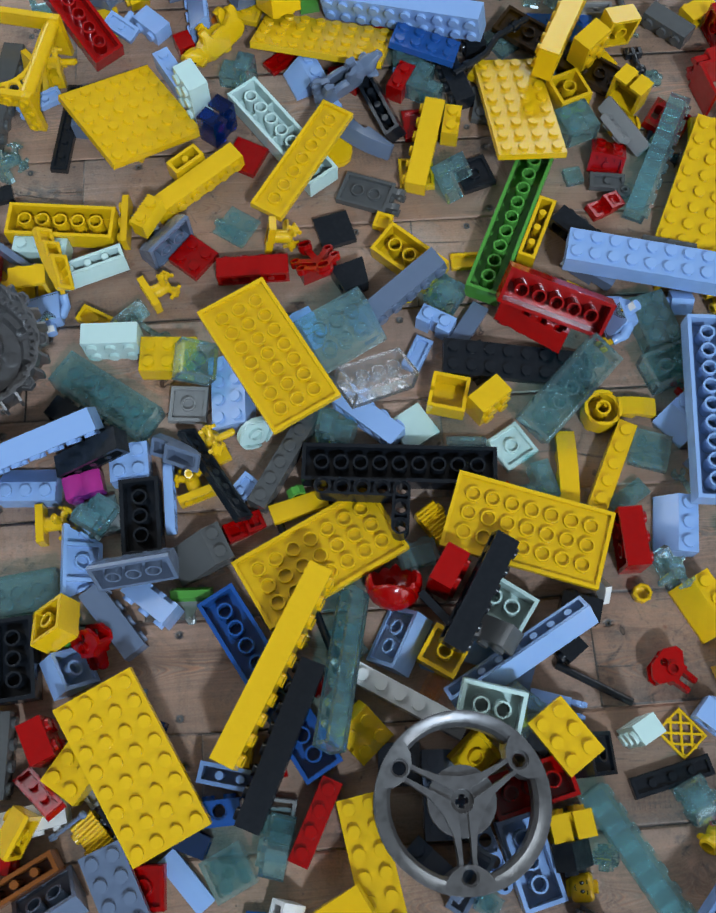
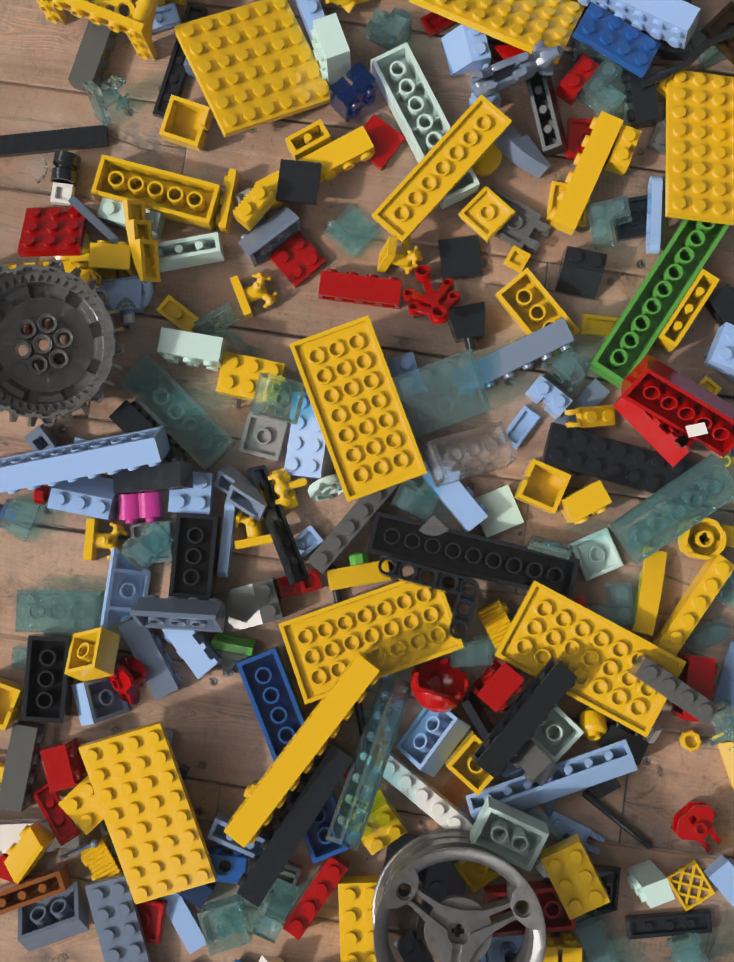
camera: 15 degrees right, 15 degrees up
(79, 168) = (186, 123): none -> yellow piece
(183, 193) = (298, 182): none -> black tile
(349, 191) = (486, 213): none -> yellow tile
(357, 444) = (433, 527): none -> clear tile
(439, 220) = (580, 272): none -> black slope
(477, 330) = (592, 416): none -> yellow hinge
(489, 166) = (654, 215): none -> light blue beam
(548, 594) = (593, 724): none -> yellow head
(569, 317) = (696, 429): none -> white sticker
(611, 536) = (674, 690): none -> dark grey brick

